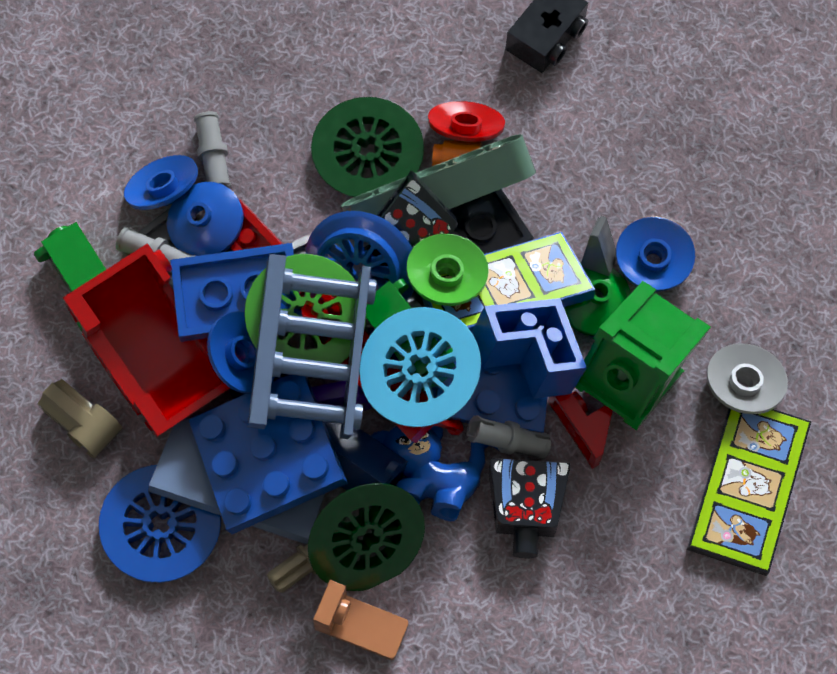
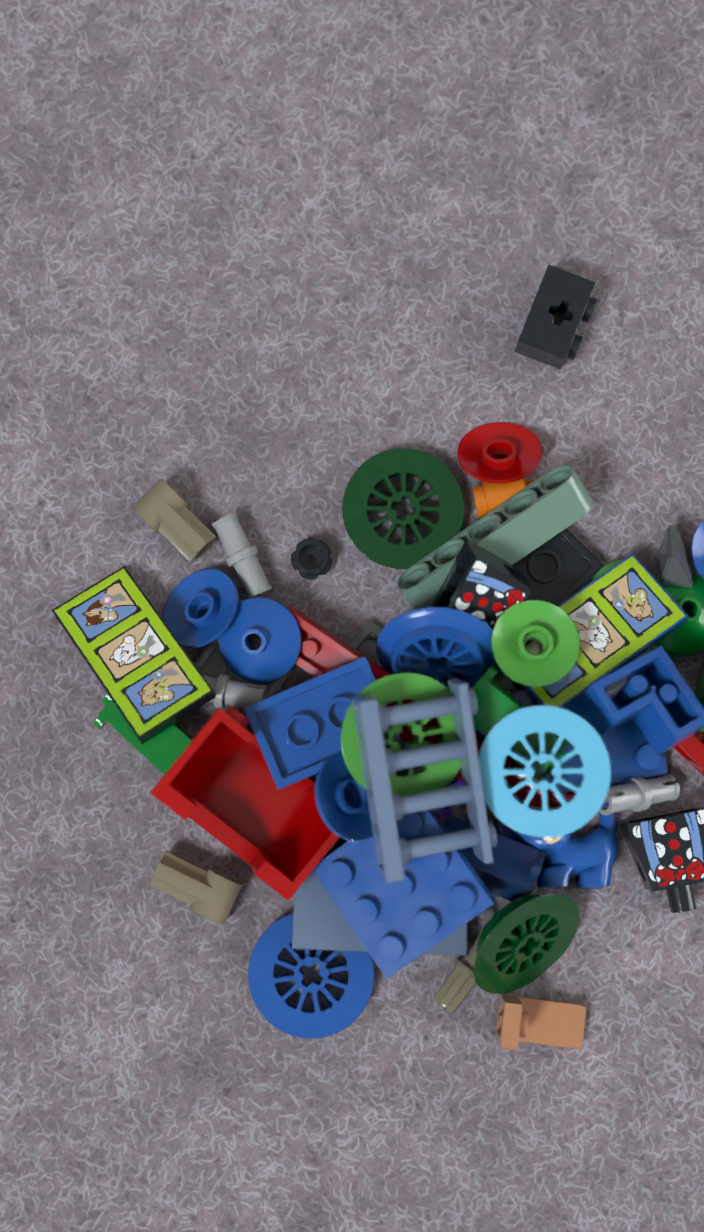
camera: 10 degrees left, 15 degrees up
(88, 200) = (133, 654): none -> tile
(161, 106) = (168, 515): none -> dark tan piece
(272, 160) = (300, 561): none -> black plate

